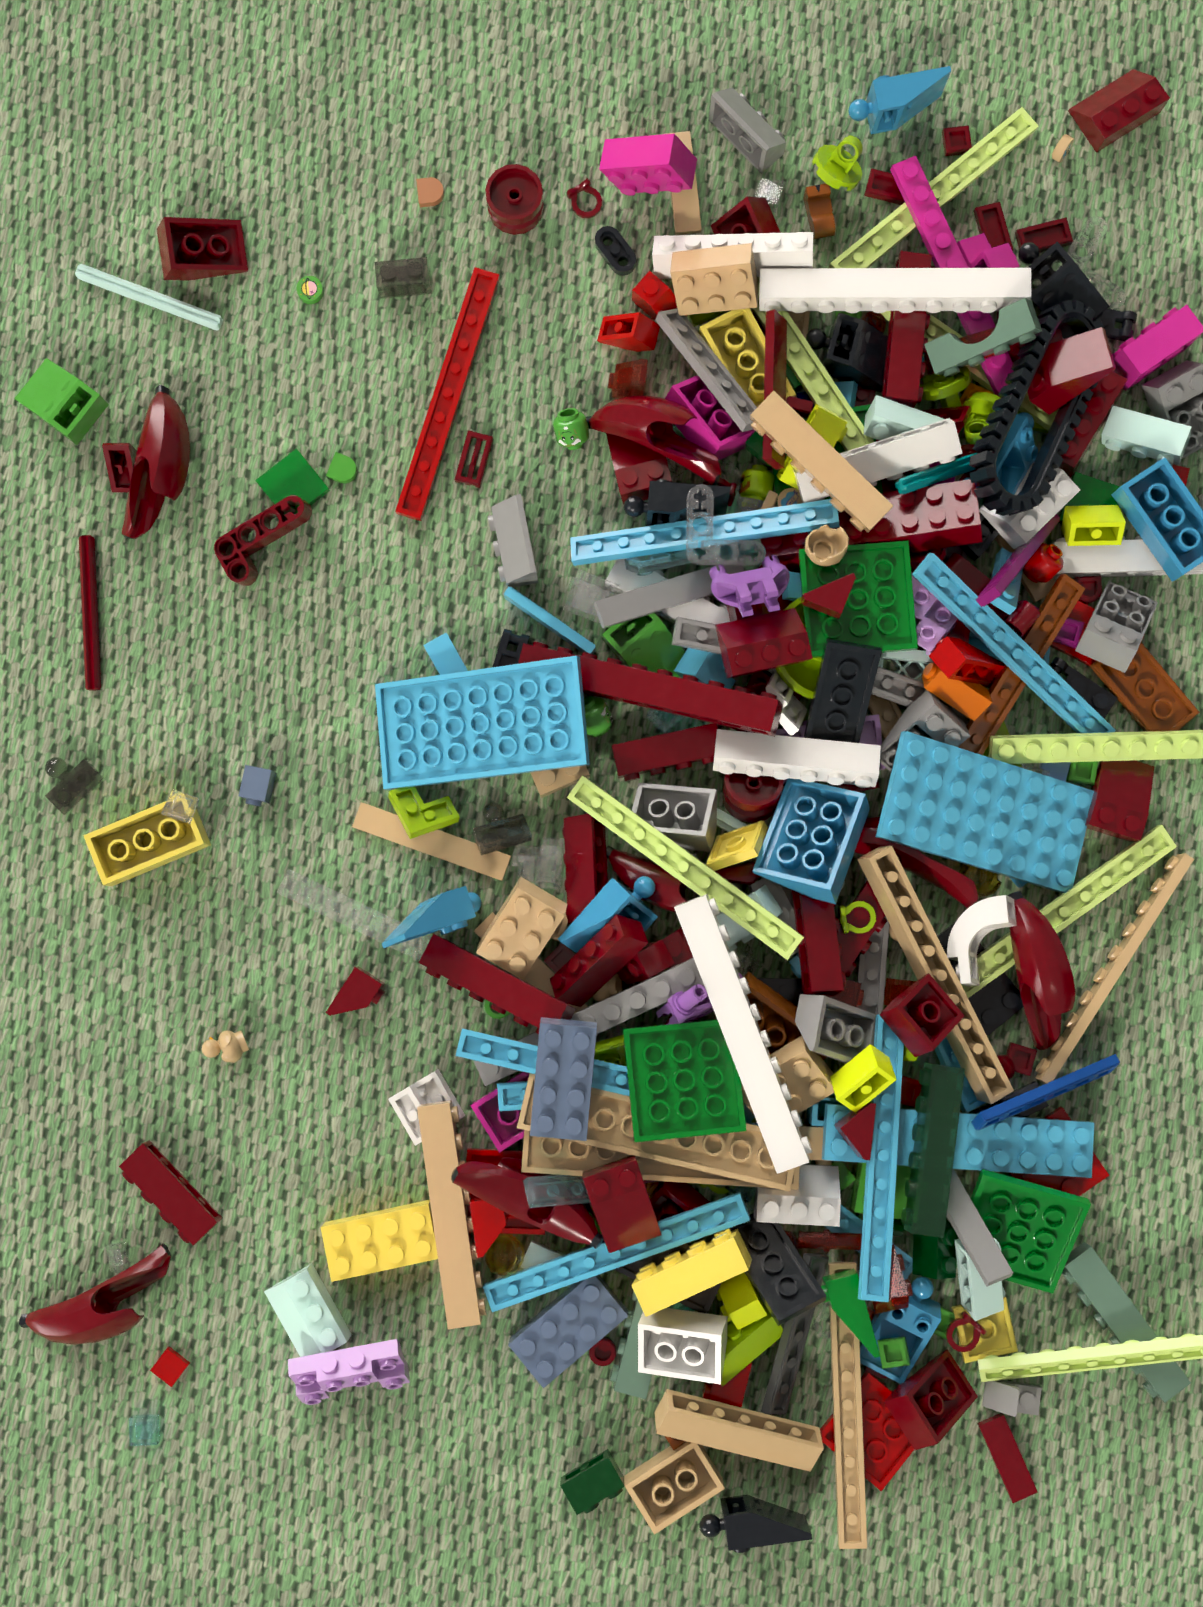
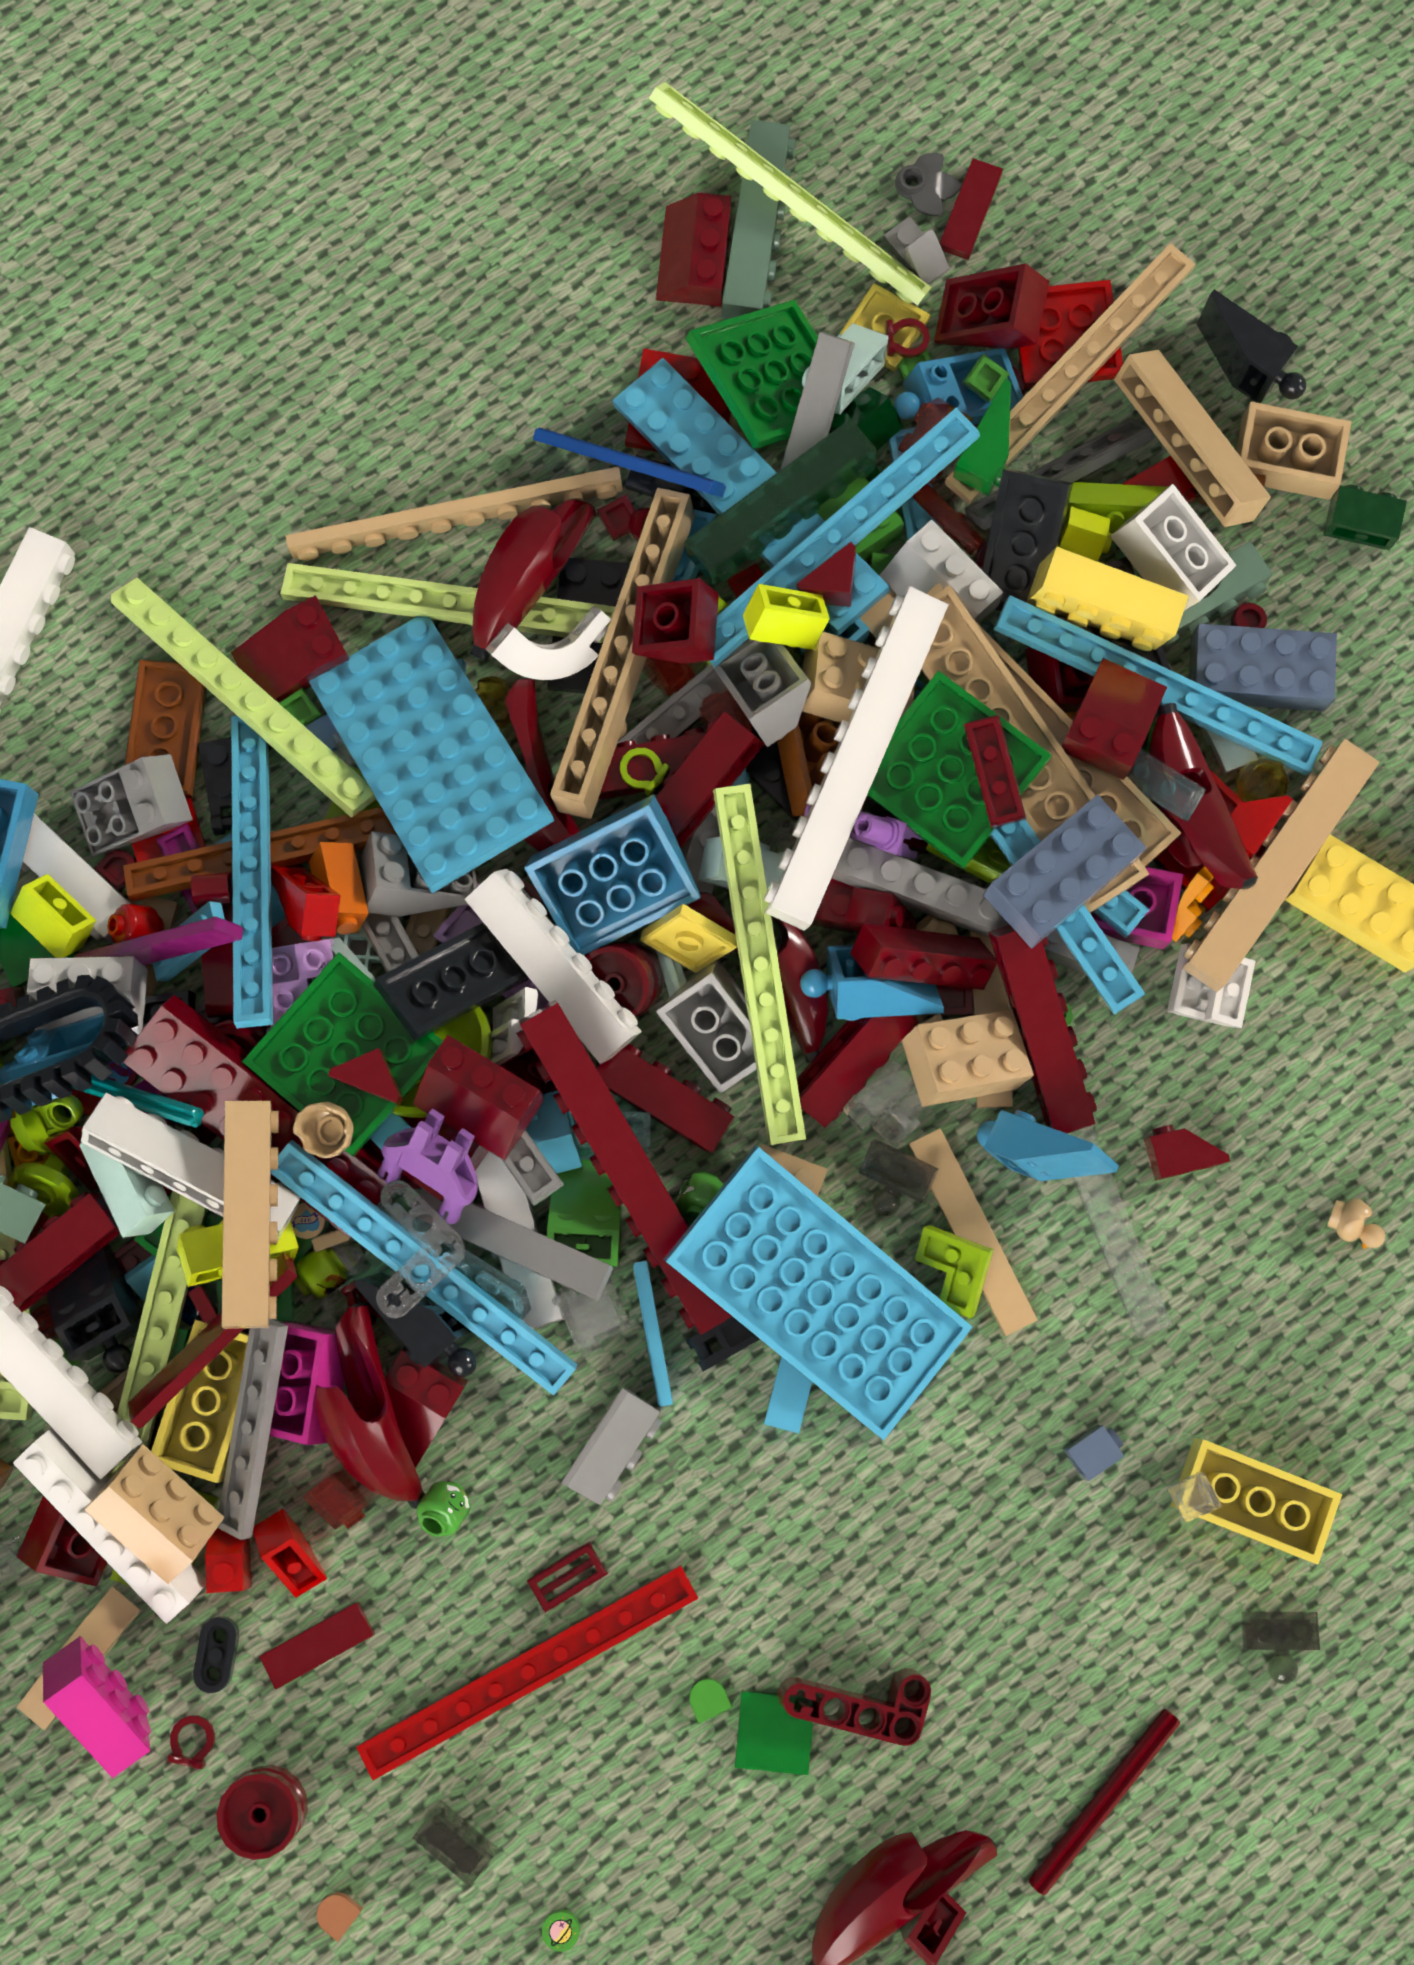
camera: 135 degrees left, 5 degrees down
(477, 1138) = (1188, 908): none -> light orange slope
(568, 304) = (316, 1645): none -> dark red tile
(657, 1100) = (994, 771): none -> dark red tile
(1044, 1451) = (932, 184): none -> dark grey plate
(1141, 1267) = (695, 250): none -> dark red slope

